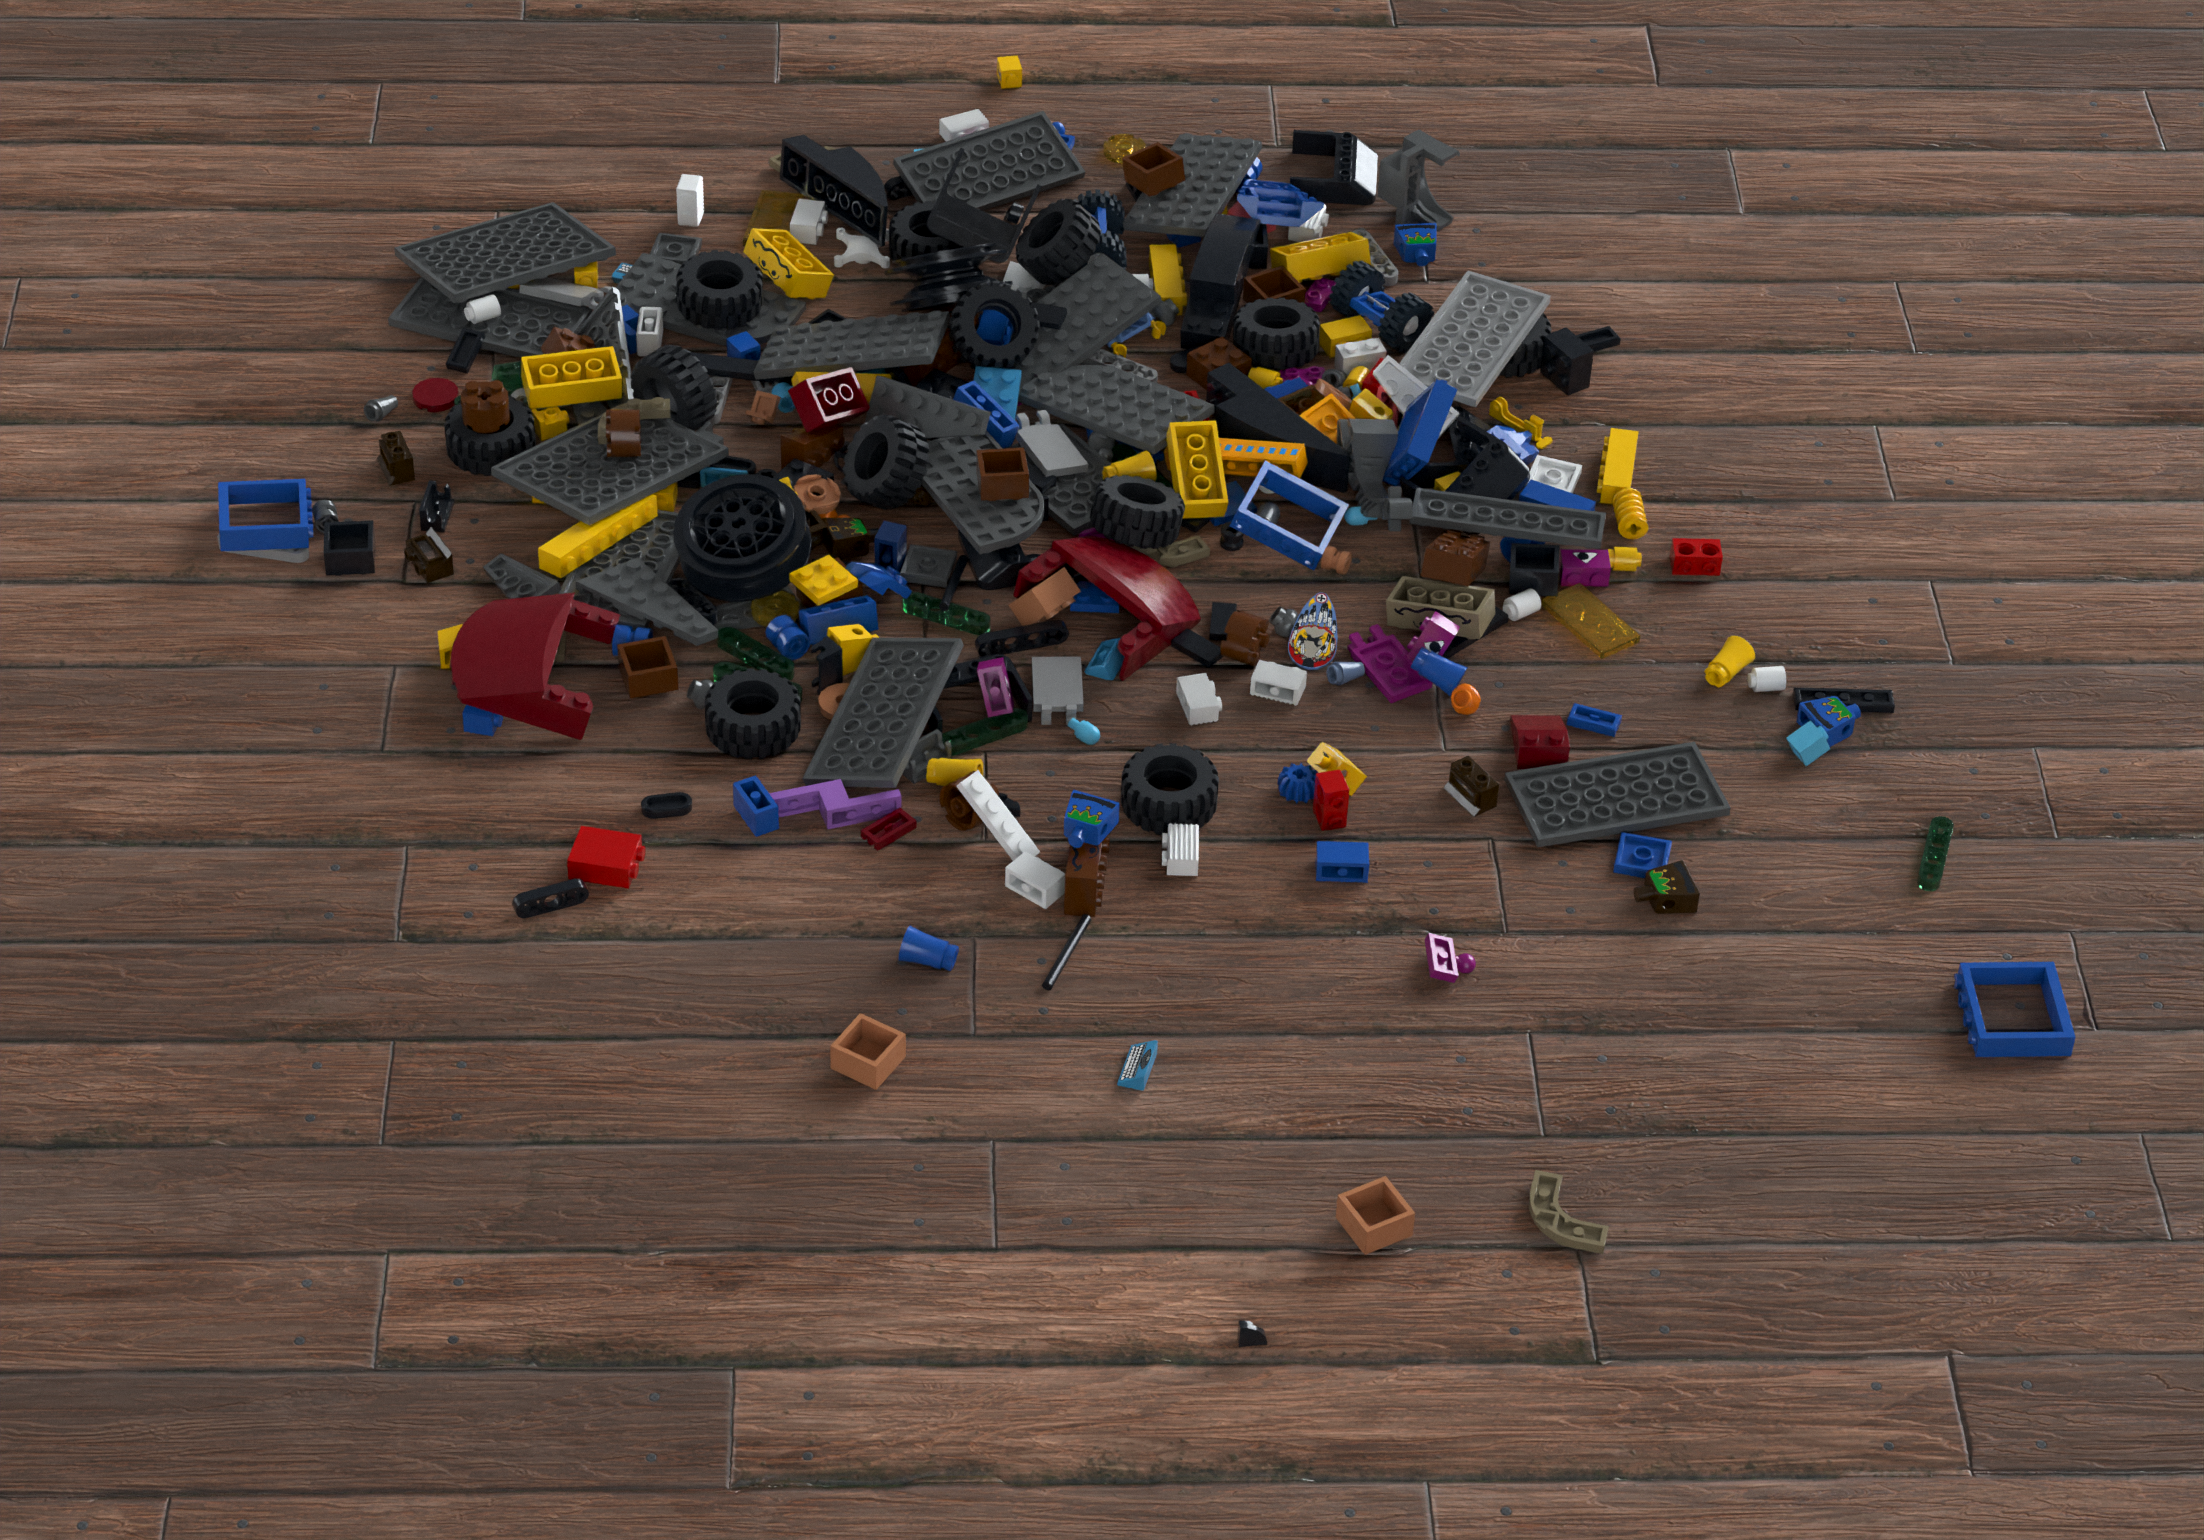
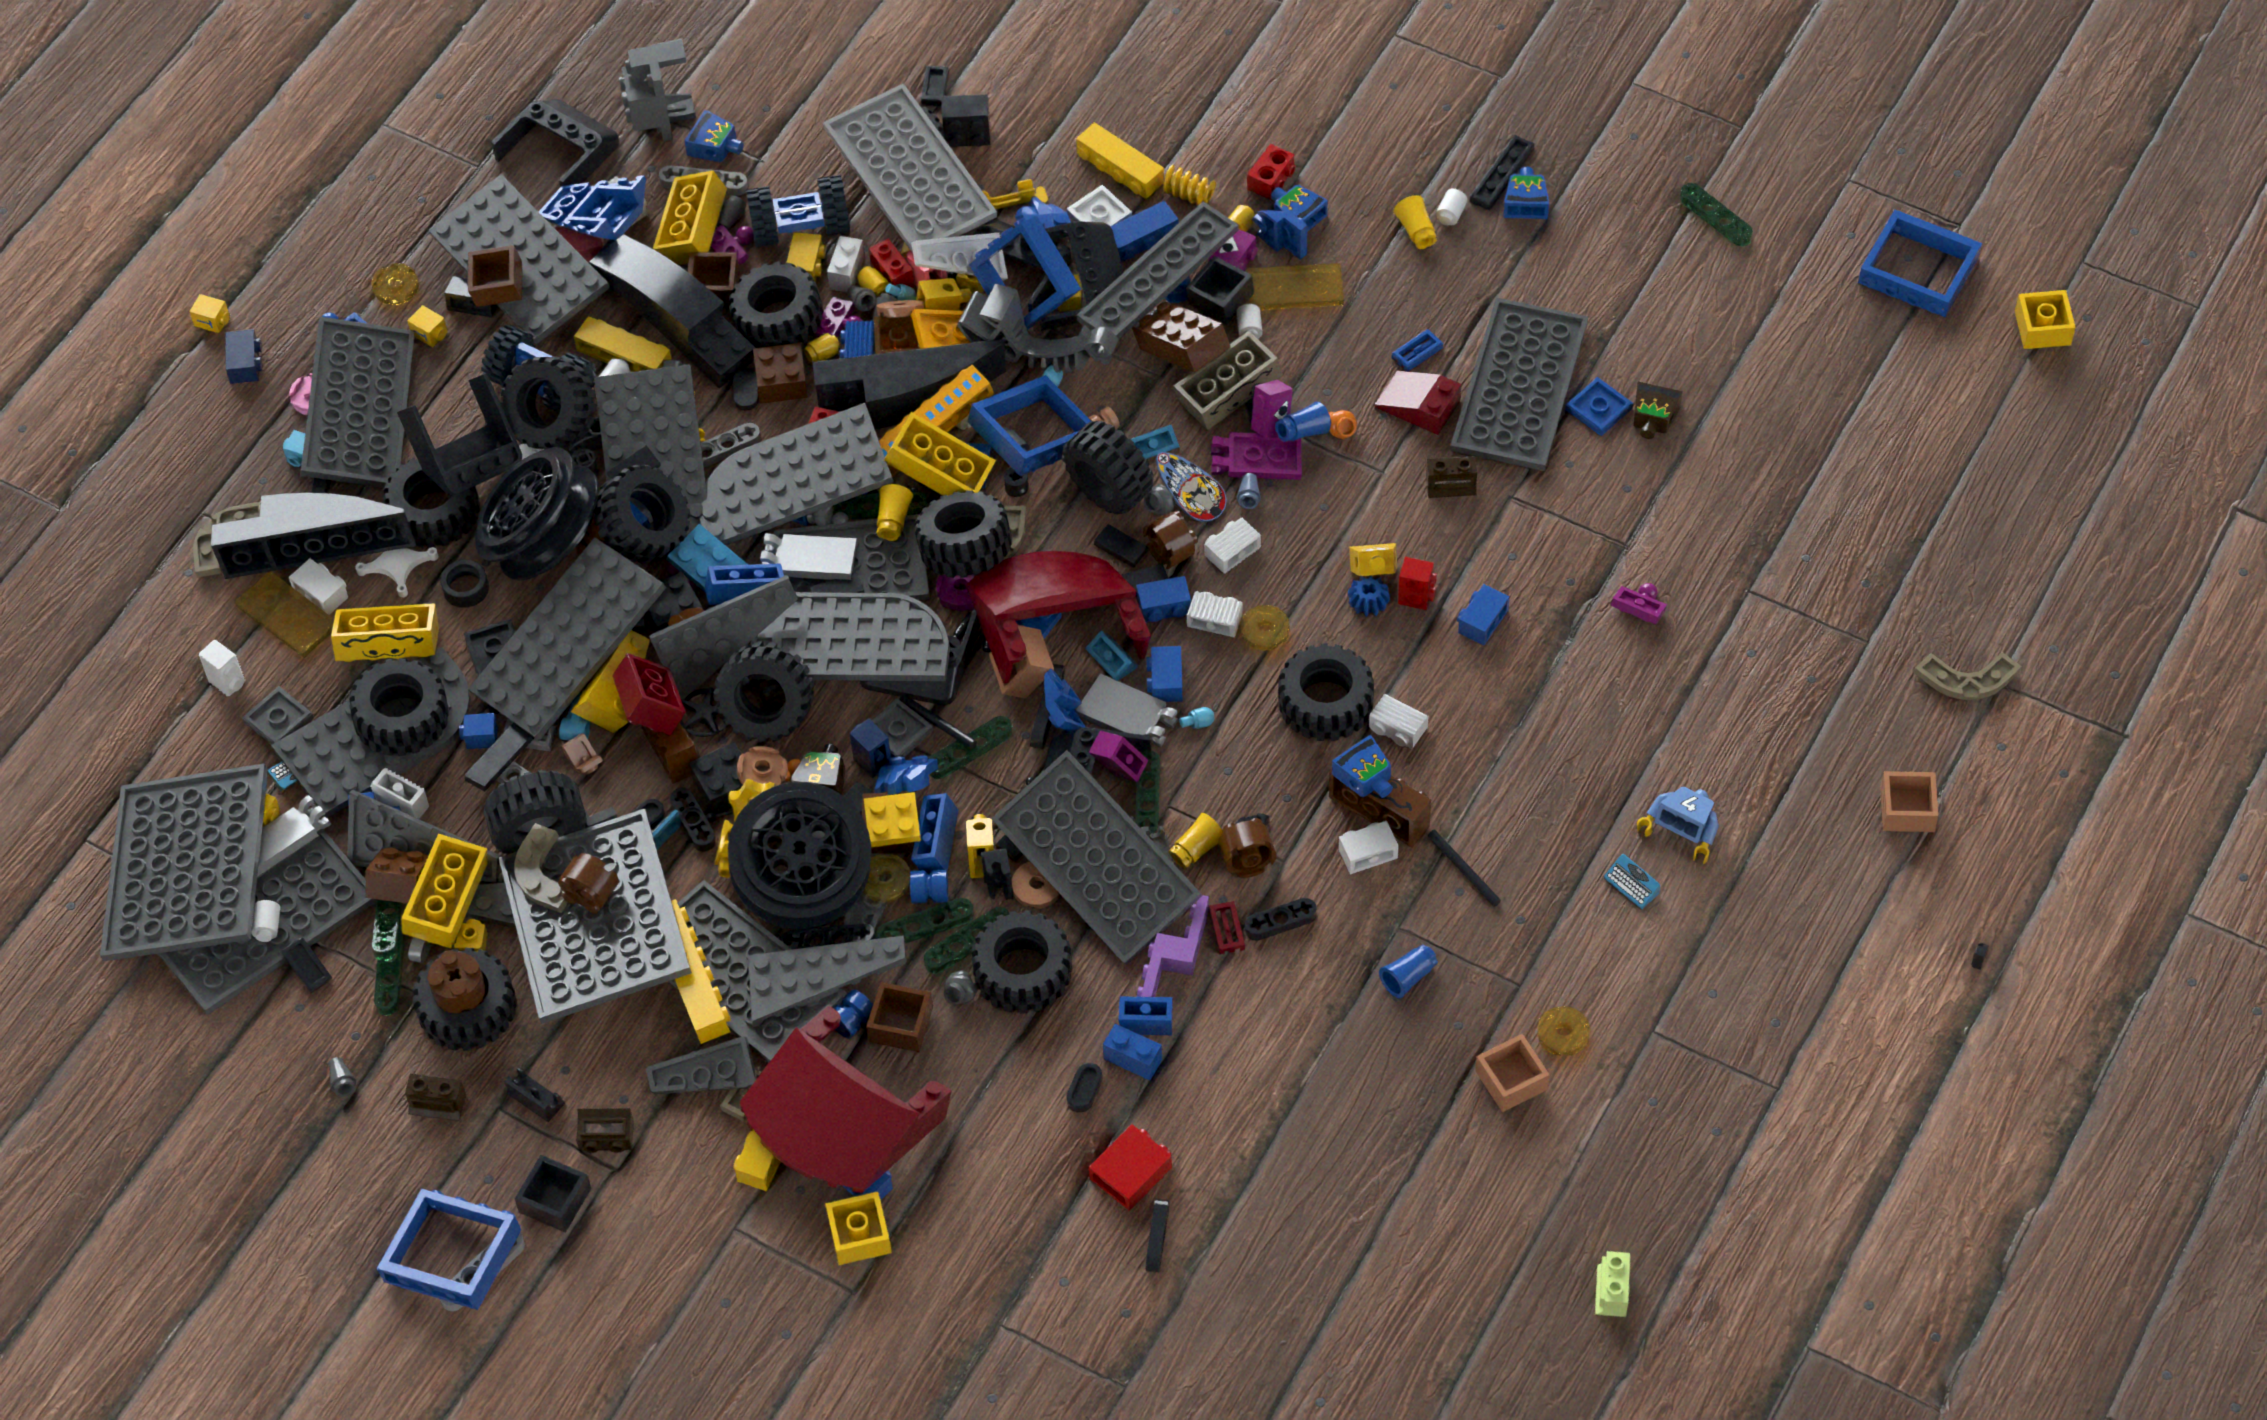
camera: 55 degrees left, 15 degrees up
(323, 512) = (477, 1194): dark grey wheel -> none
(432, 721) = (858, 1228): none -> yellow brick
(435, 394) = (350, 1021): dark red tile -> none
(699, 1194) = (1613, 1284): none -> yellowish green window
(717, 814) = (1132, 1052): none -> blue brick
(873, 300) = (468, 598): none -> black tyre
(908, 848) = (1300, 919): none -> black beam
(942, 1066) = (1563, 1017): none -> clear yellow tile
(962, 124) = (270, 392): white brick -> none
(989, 99) = (243, 356): none -> dark blue brick
(996, 816) = (1291, 836): white plate -> none
(1002, 474) = (867, 608): reddish brown piece -> none
(1013, 213) = (462, 422): black beam -> none
(1022, 635) = (1061, 702): none -> blue plate
(1095, 175) = (427, 326): none -> yellow brick
(1112, 693) = (1166, 673): none -> blue brick
(1184, 659) = (1163, 599): none -> blue brick
(1223, 729) = (1269, 616): none -> clear yellow tile
(1233, 1070) = (1685, 814): none -> medium blue torso
(1274, 562) = (1107, 467): none -> black tyre
(1346, 599) = (1156, 441): none -> dark azure slope
(1633, 583) = (1282, 230): none -> blue plate
(1671, 589) = (1302, 204): none -> blue torso
(1809, 742) = (1549, 222): medium azure brick -> none
(2031, 1117) = (2044, 319): none -> yellow brick

